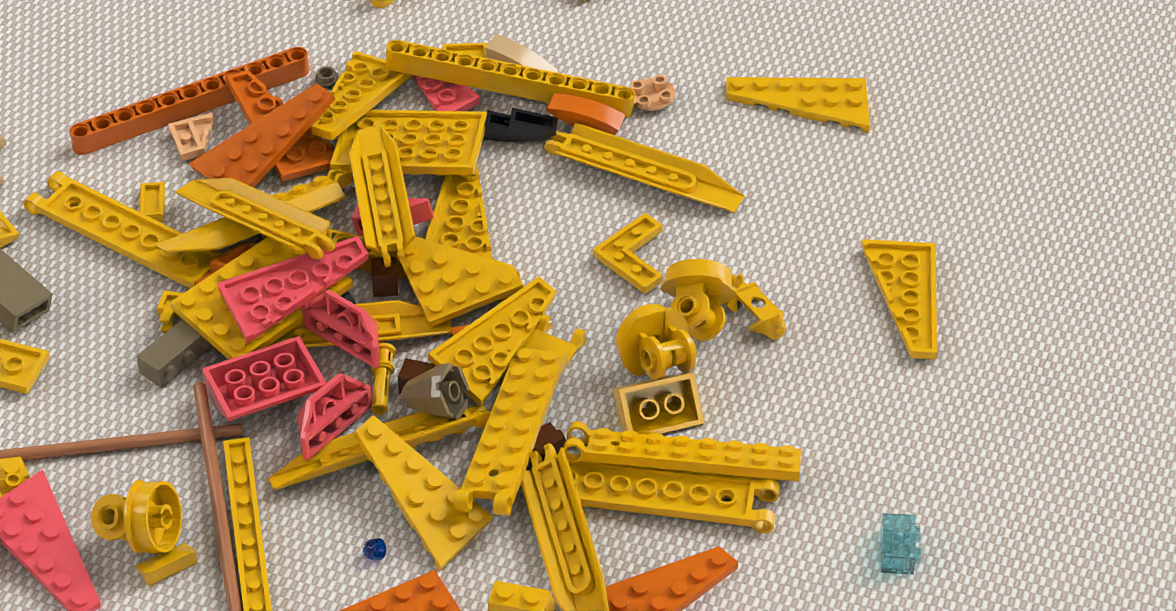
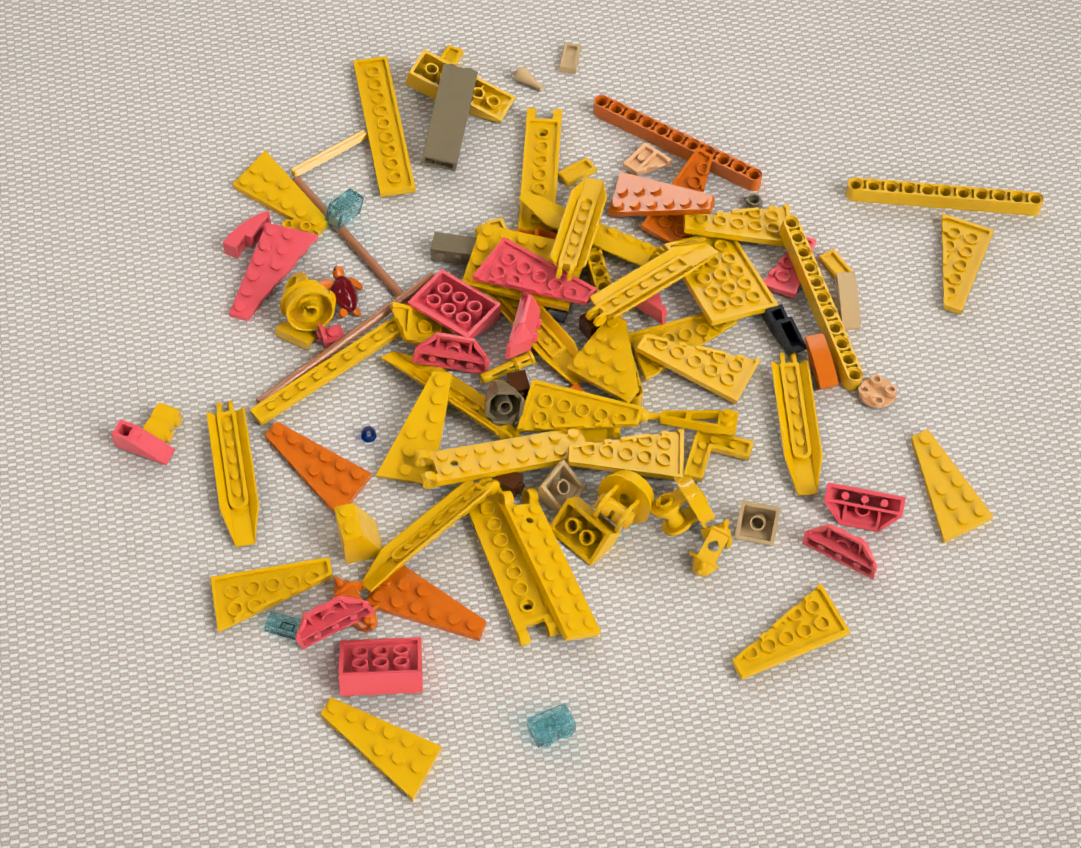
camera: 60 degrees right, 10 degrees up
(23, 427) = (344, 208): none -> clear light blue brick
(148, 472) = (344, 291): none -> dark red animal
(196, 527) = (329, 334): none -> coral bracket
(262, 431) = (414, 325): none -> yellow wing
(518, 206) = (707, 367): none -> yellow wing
(571, 256) = (726, 418): none -> yellow plate
(586, 401) = (559, 486): none -> tan slope
(593, 315) = (644, 454): none -> yellow wing
(752, 254) = (757, 522): none -> tan slope
(794, 162) = (863, 507): none -> coral wedge
(833, 200) = (842, 547): none -> coral wedge

